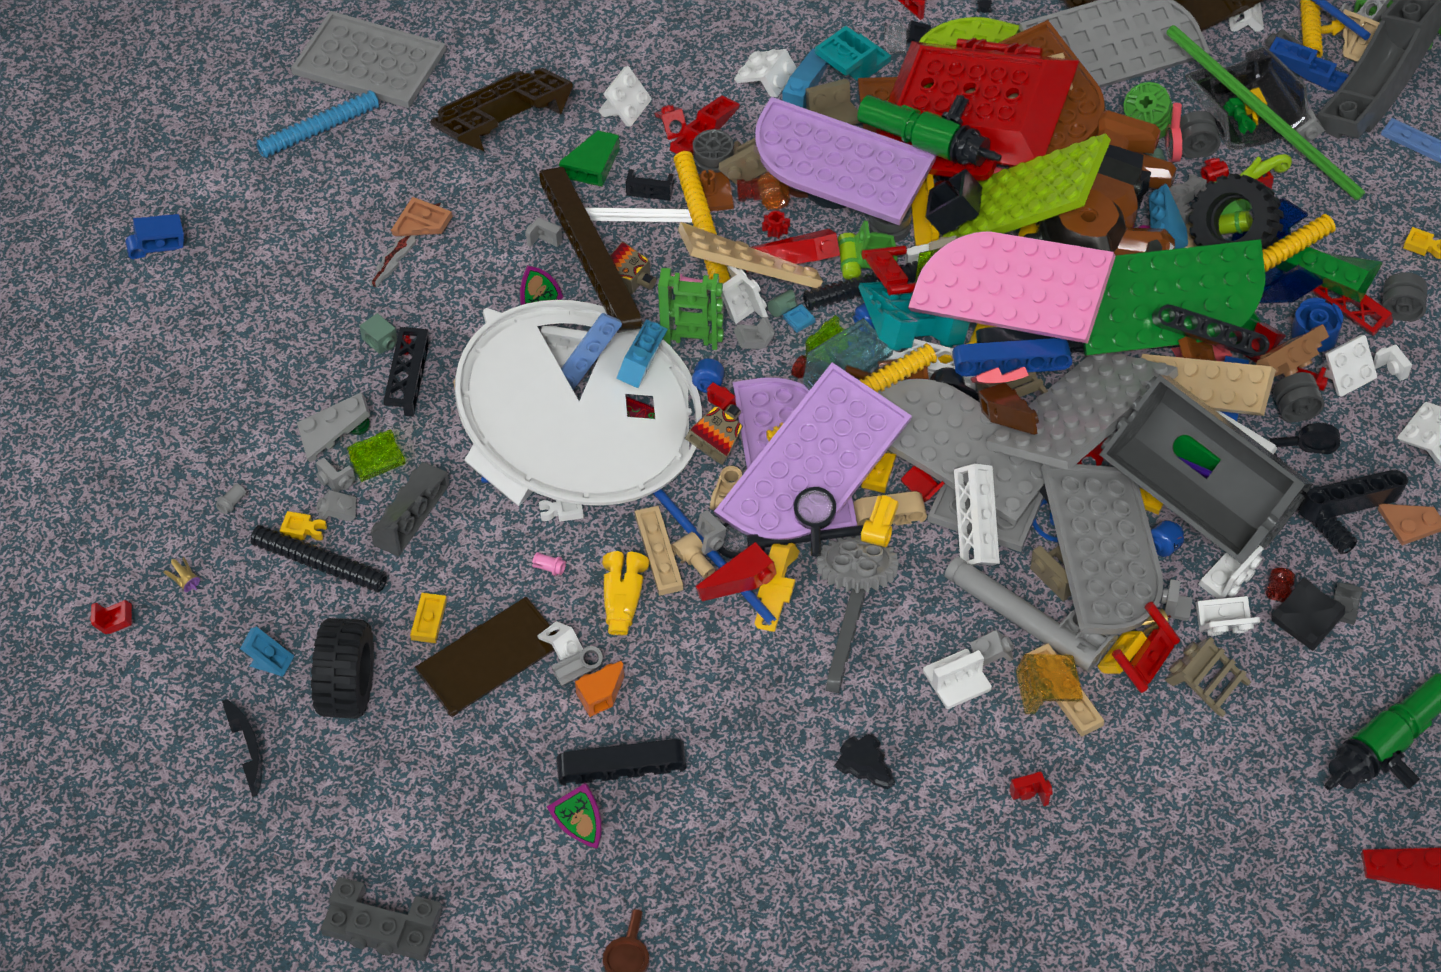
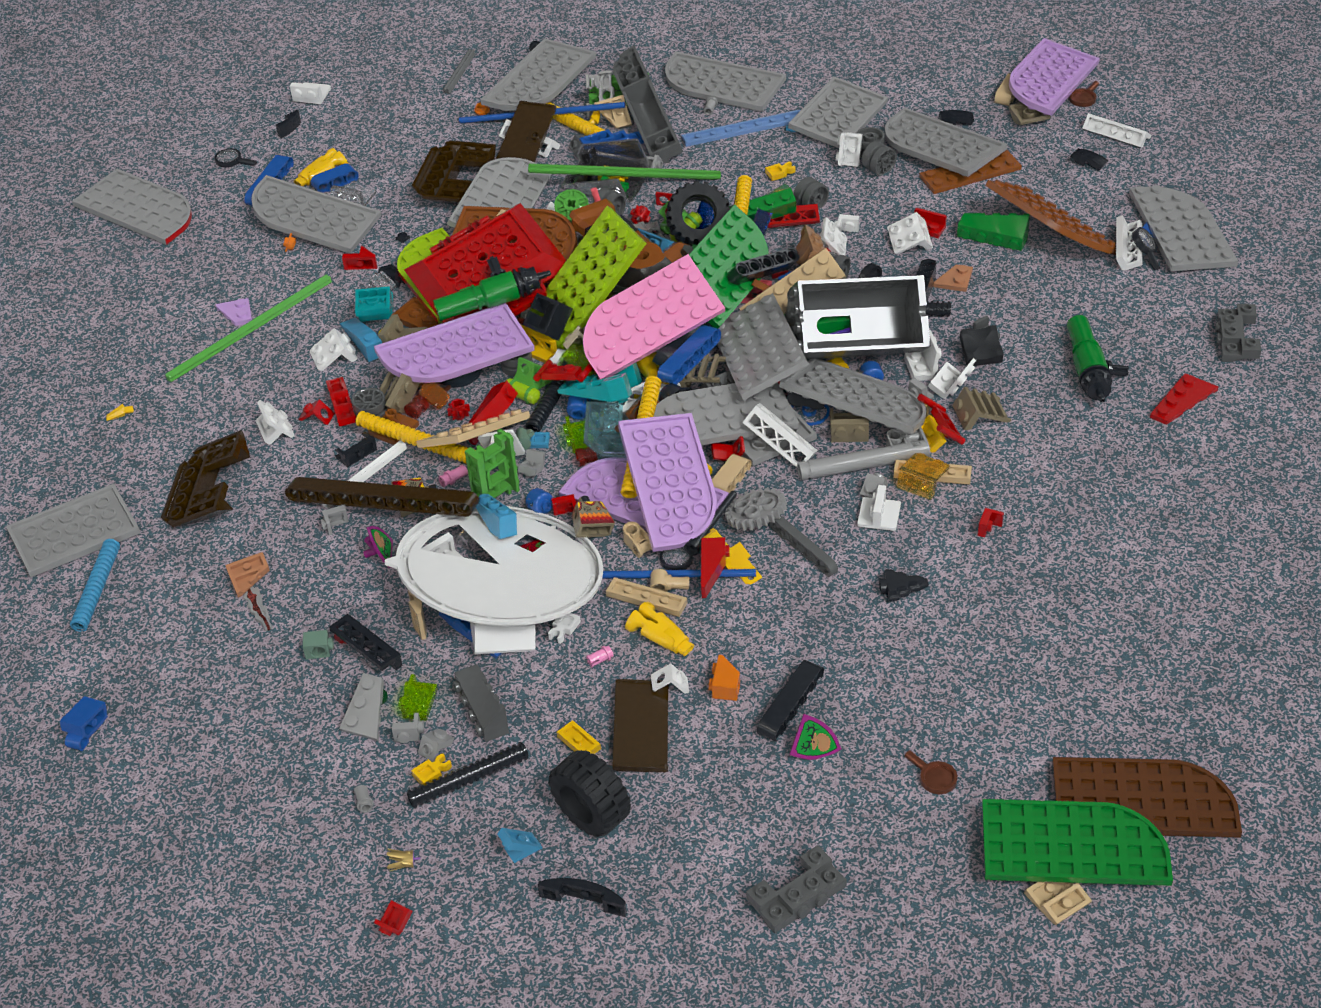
camera: 50 degrees left, 10 degrees down
(575, 666) = (696, 681): light grey piece -> none
(590, 348) = (464, 531): medium blue bracket -> none
(592, 159) = (304, 461): green slope -> none
(712, 531) = (664, 560): light grey bracket -> none
(815, 510) = (706, 499): piece -> none
(878, 528) = (743, 482): yellow piece -> none
(994, 376) = (702, 362): coral slope -> none
(1007, 409) = (732, 370): reddish brown slope -> none
(1259, 168) = (664, 190): lime plant -> none
(1280, 584) = (949, 347): clear red wheel -> none
(1314, 313) = (788, 233): blue brick -> none

